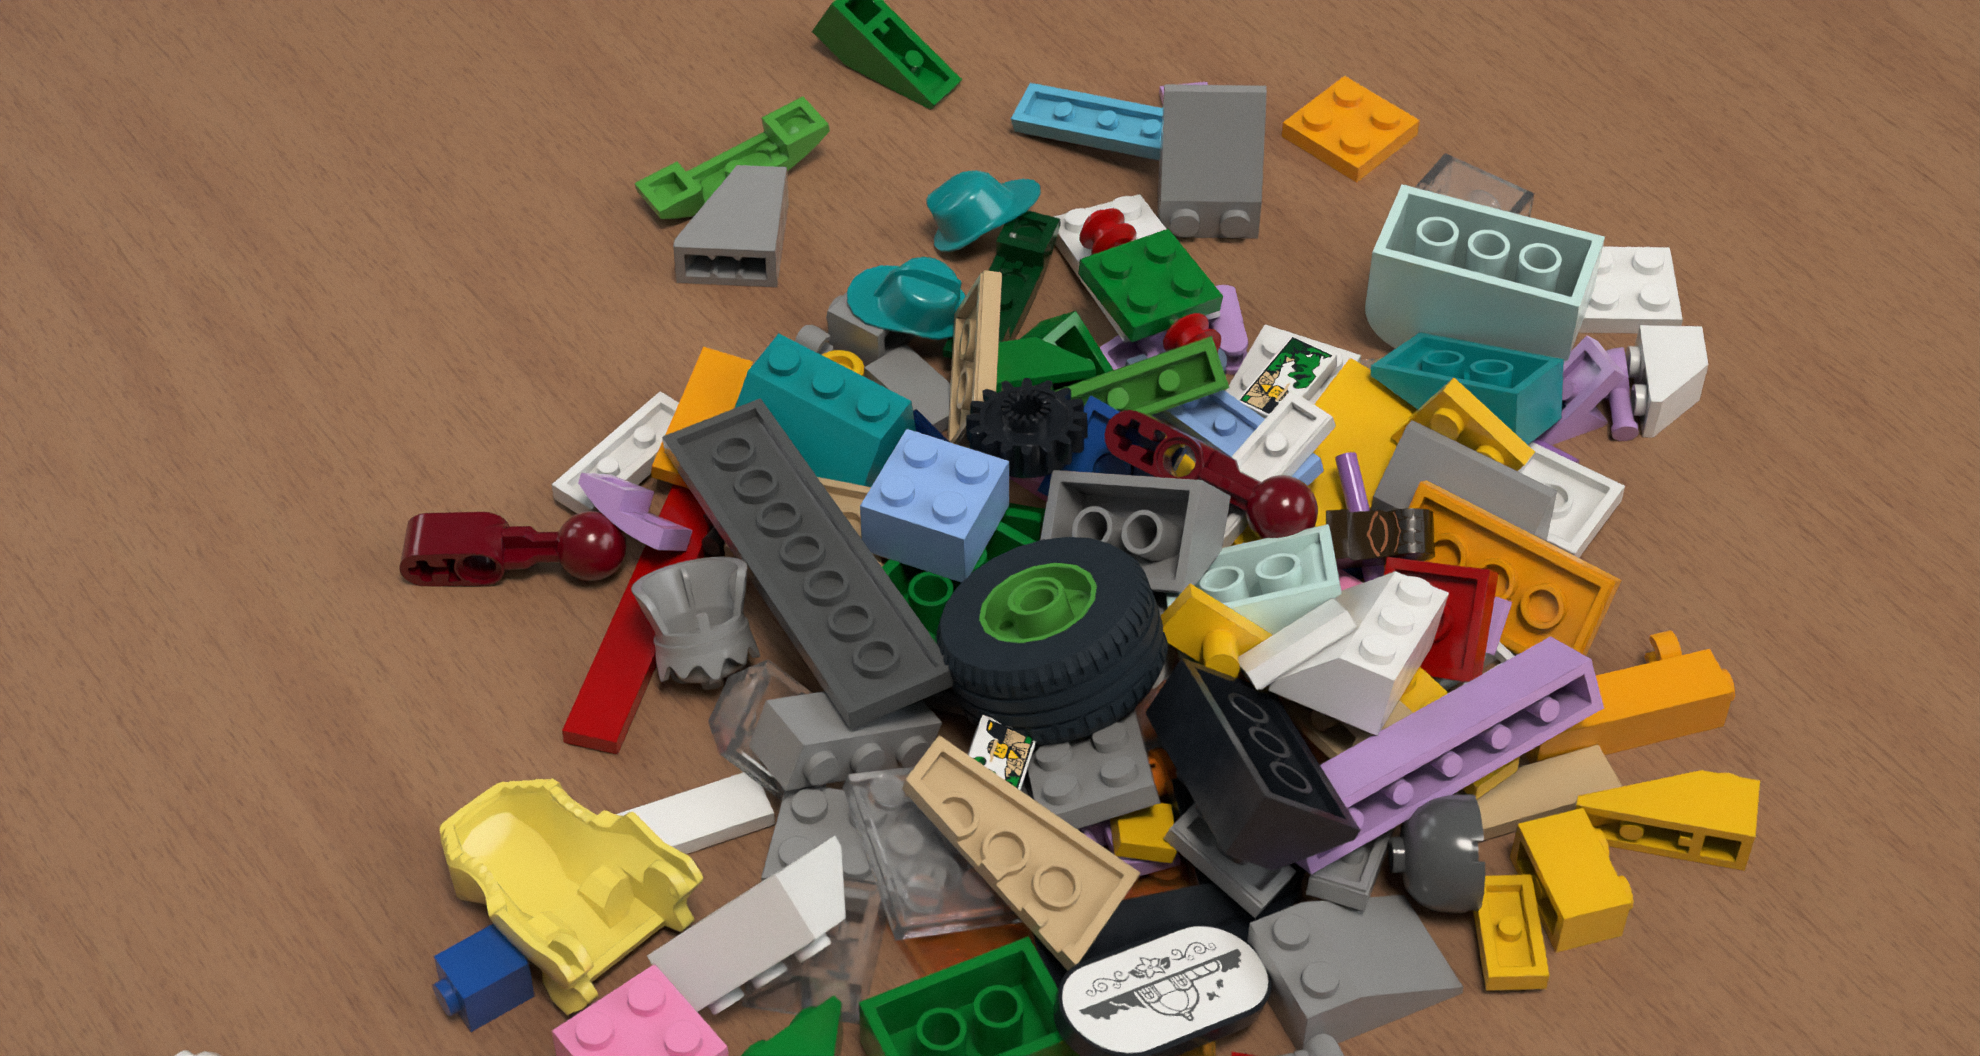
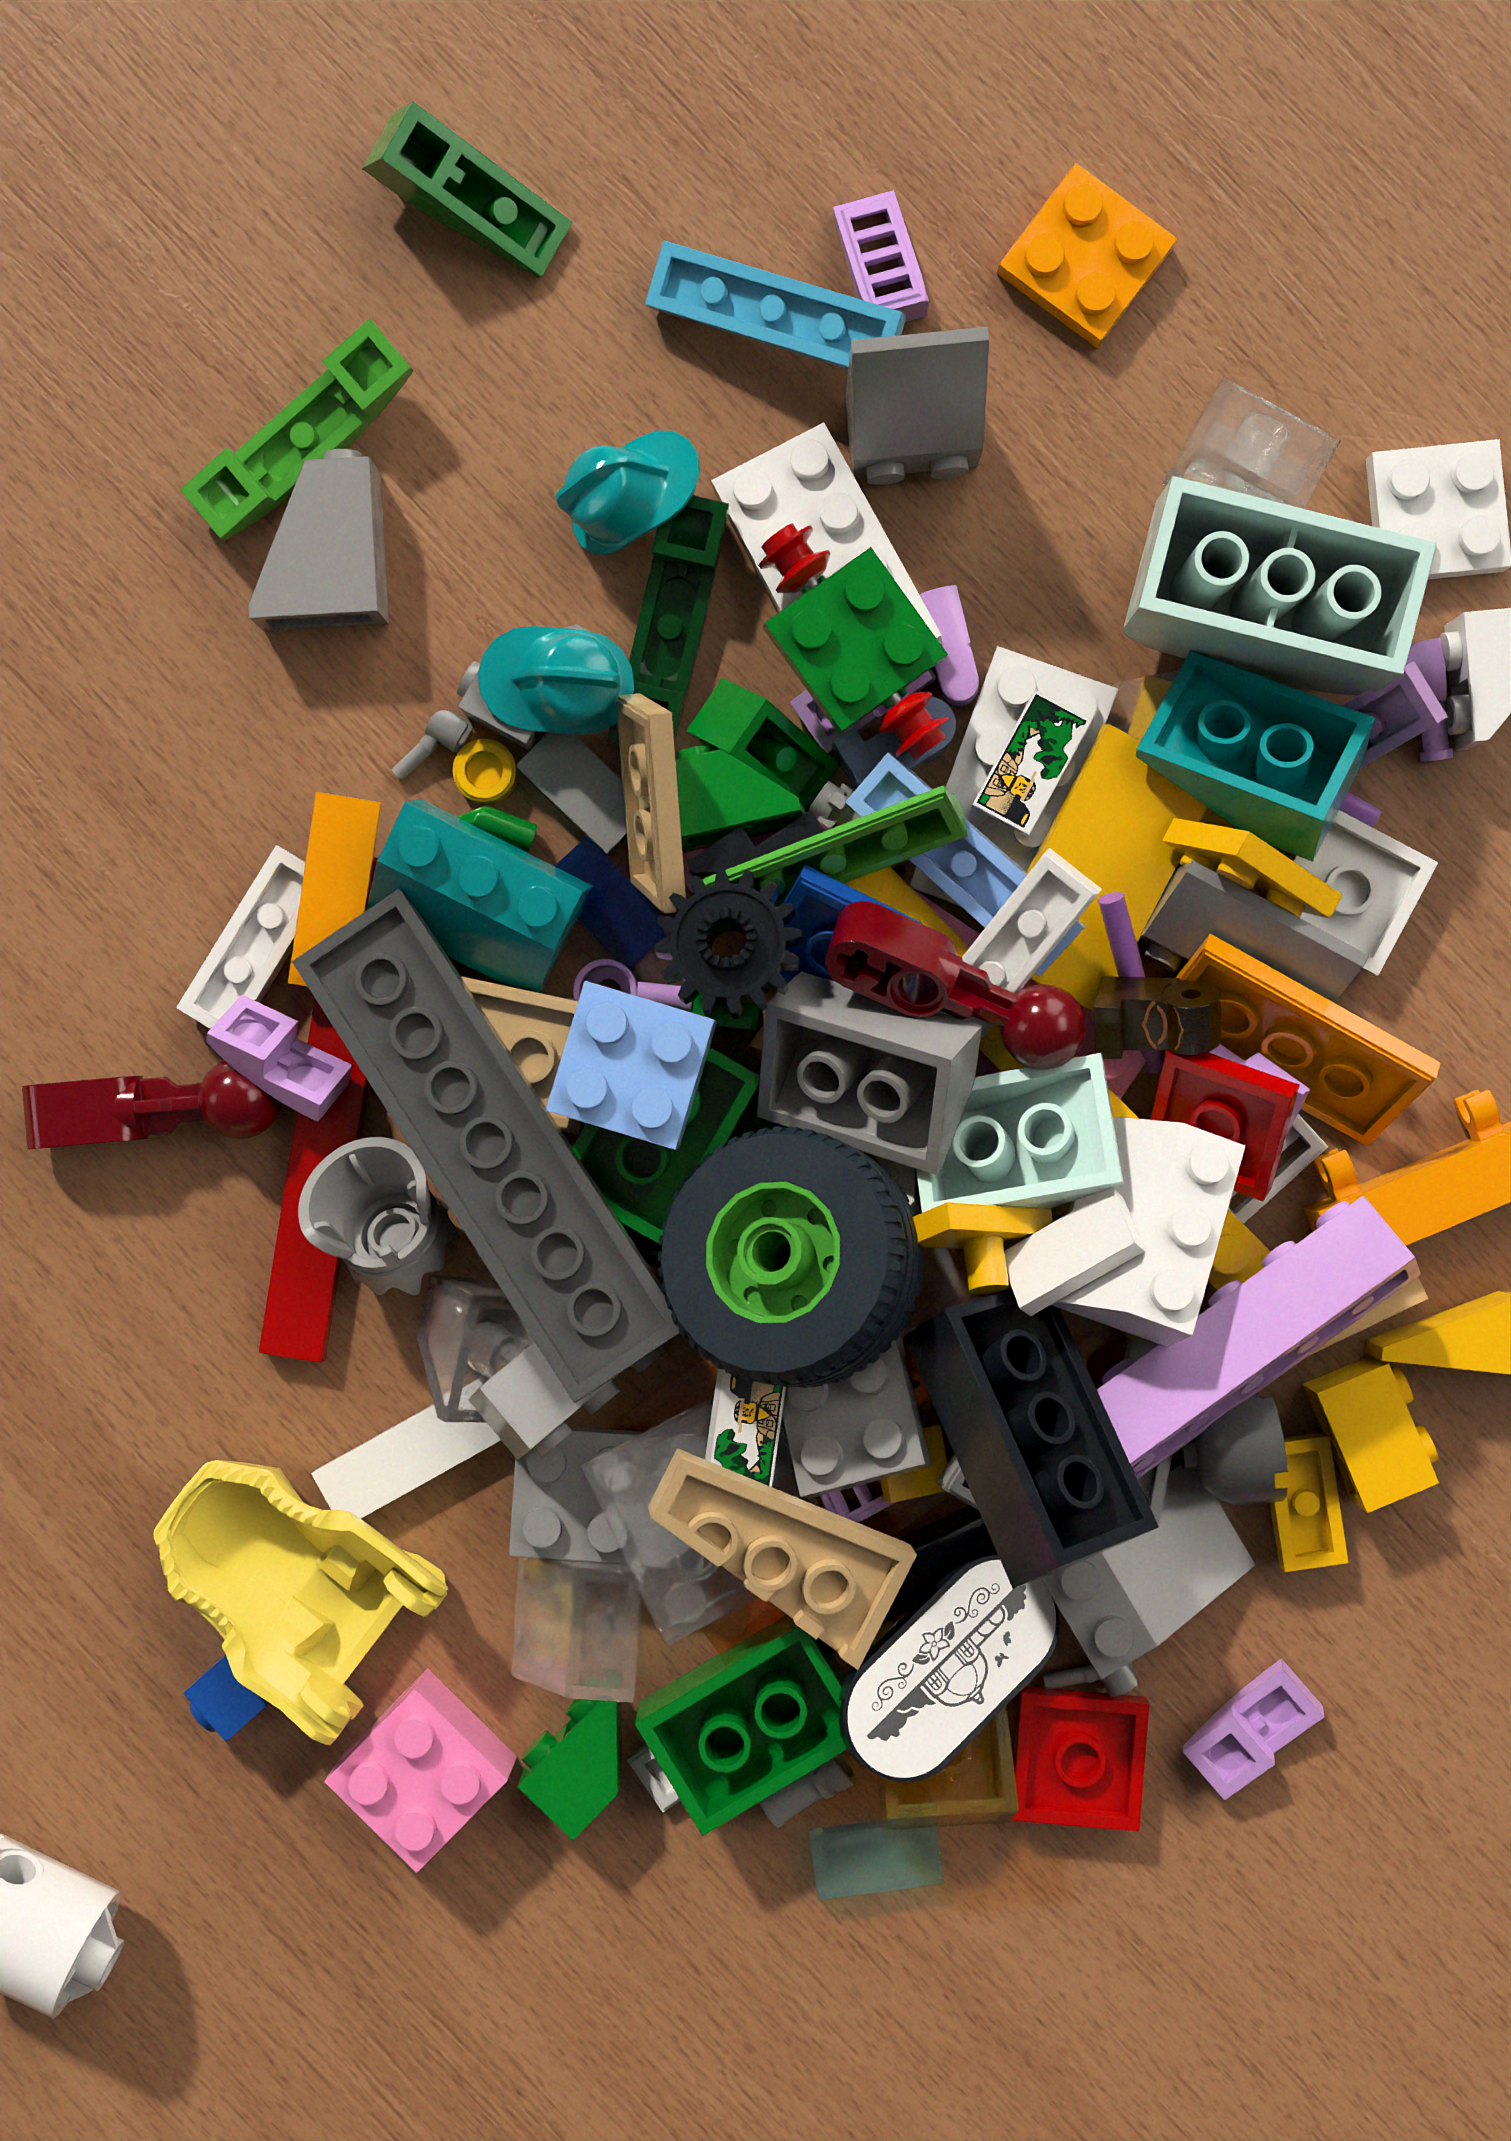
camera: 10 degrees left, 40 degrees up
(758, 931) = (515, 1641): white slope -> none

